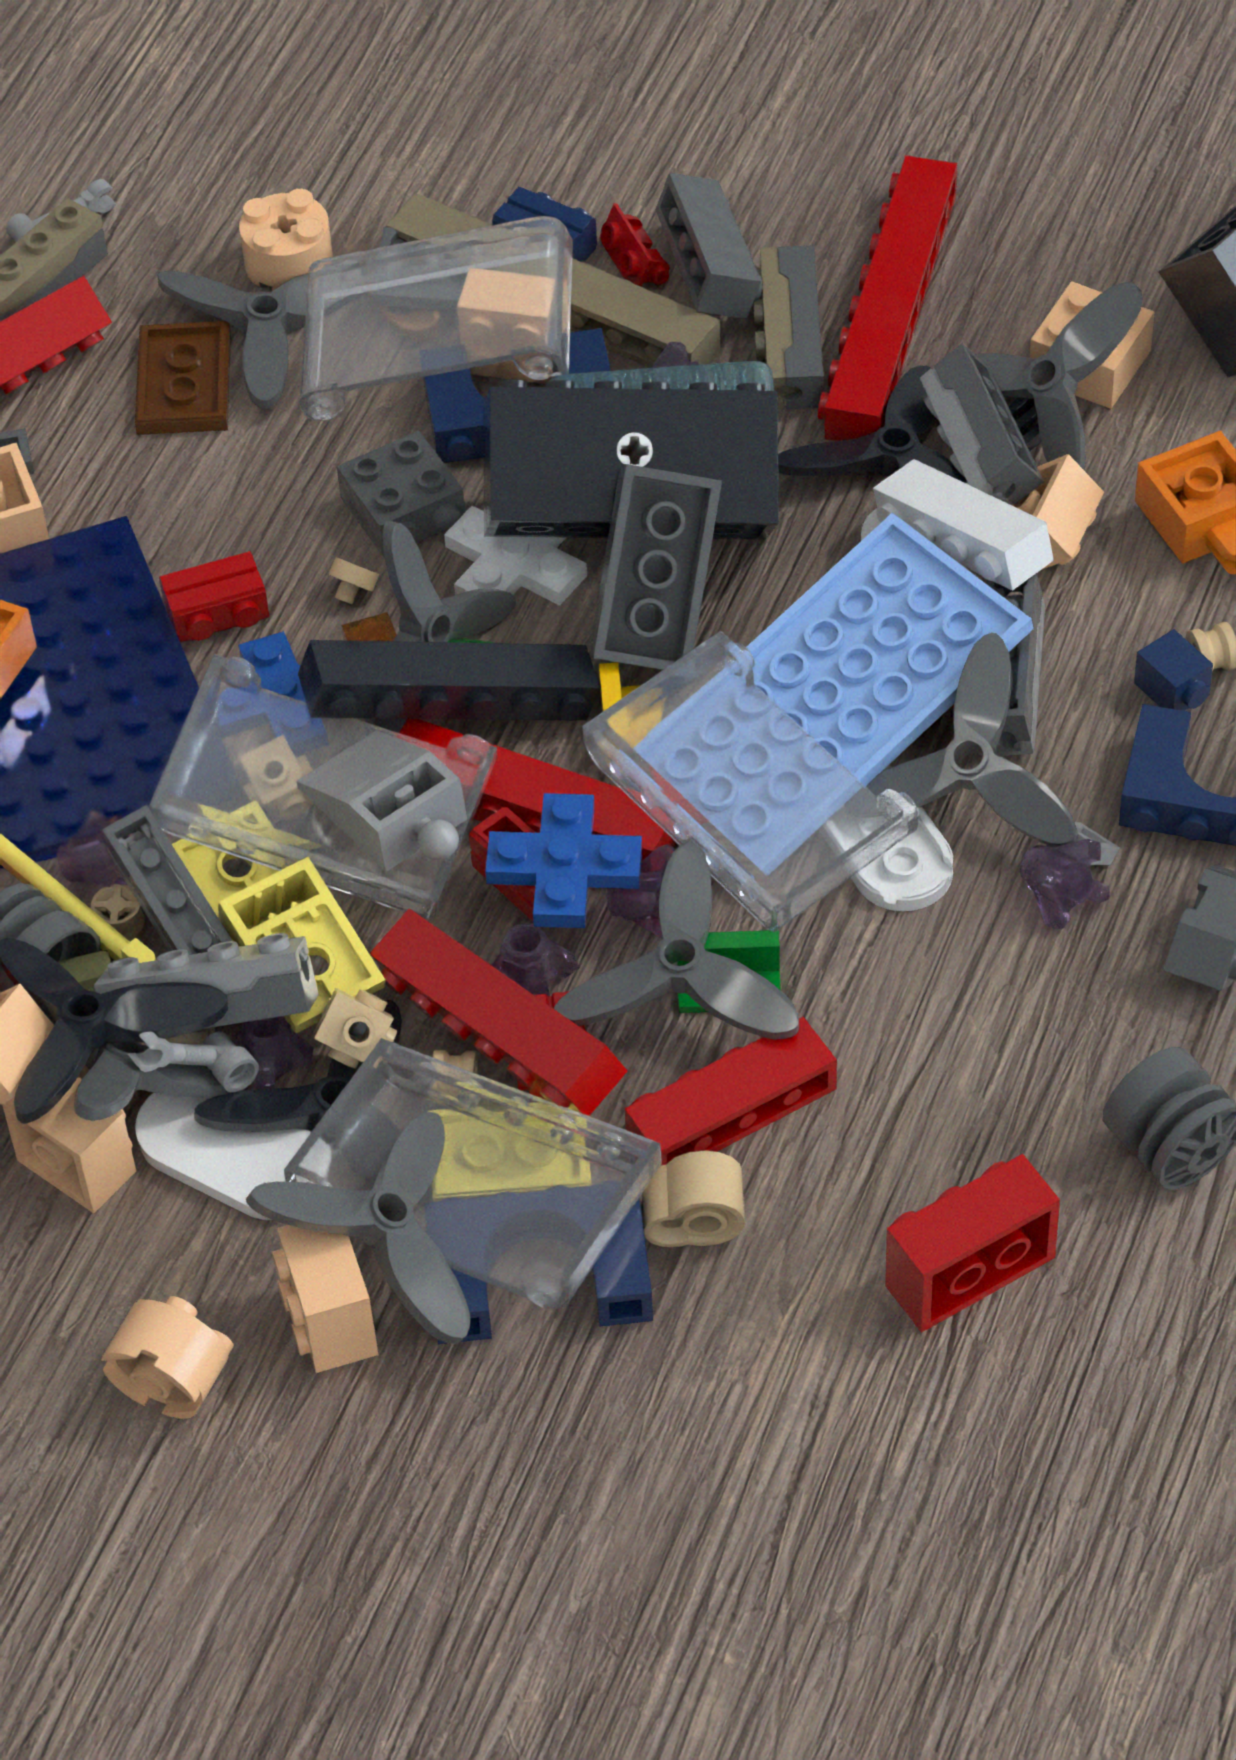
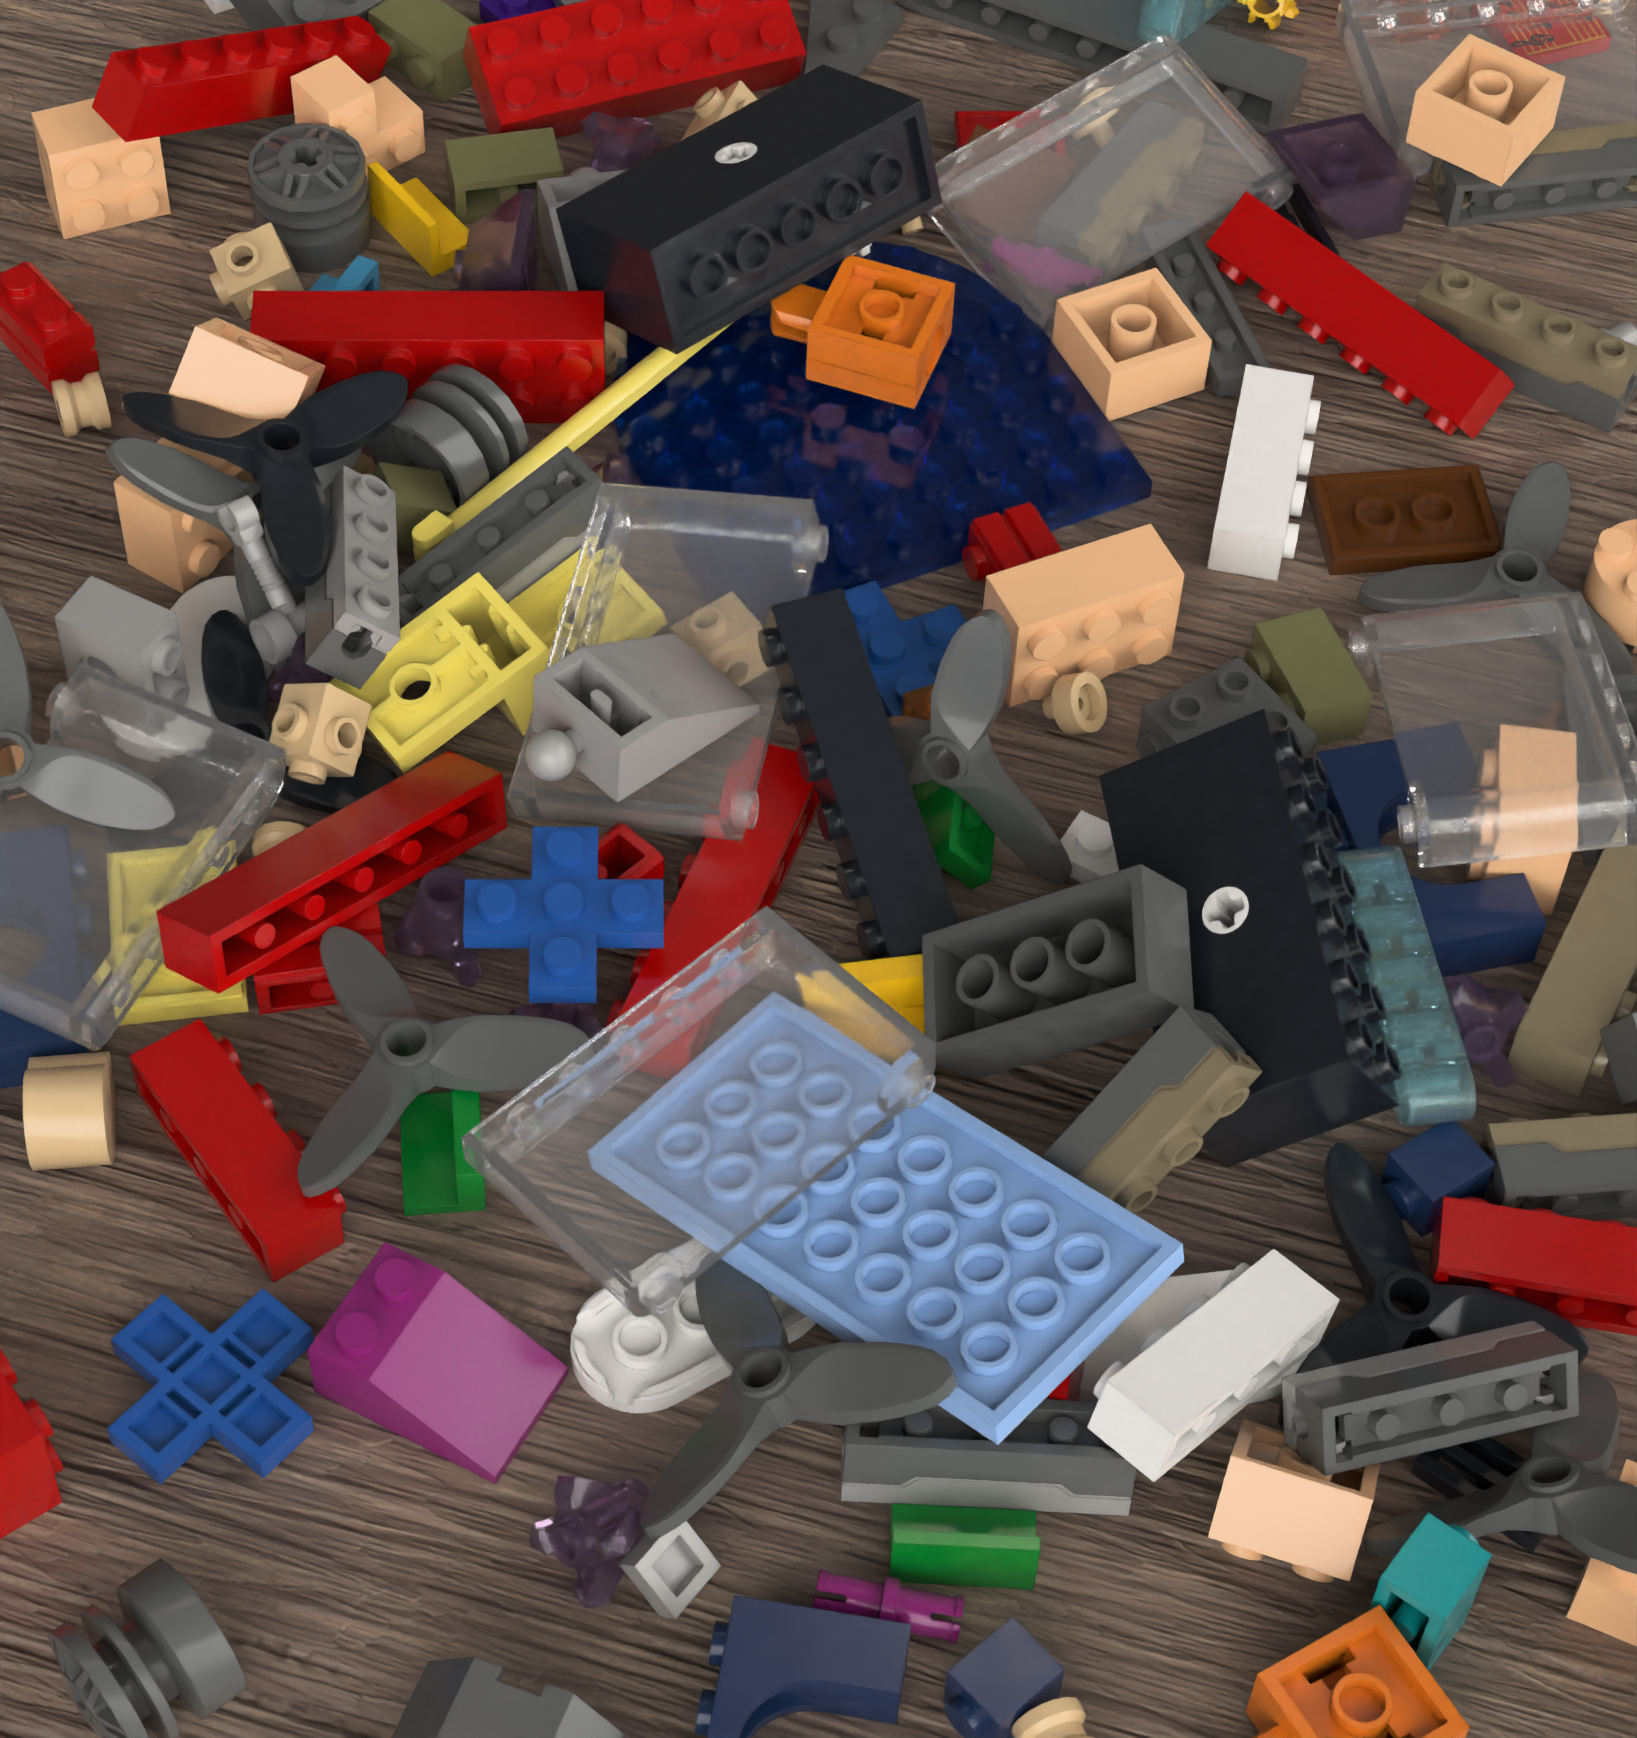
camera: 80 degrees right, 0 degrees up
(130, 447) = (1262, 472): none -> white brick
(250, 1152) = (123, 638): none -> light grey brick
(286, 552) = (1087, 610): none -> light nougat brick
(341, 434) = (1311, 673): none -> olive brick
(781, 521) = (1156, 1109): none -> piece
(800, 417) = (1435, 1166): none -> dark blue brick
(919, 981) = (434, 1364): none -> magenta slope
(934, 1111) = (211, 1386): none -> blue plate
(1065, 693) = (963, 1546): none -> green panel
(1113, 732) = (891, 1603): none -> magenta pin
(1117, 440) = (1432, 1586): none -> teal brick

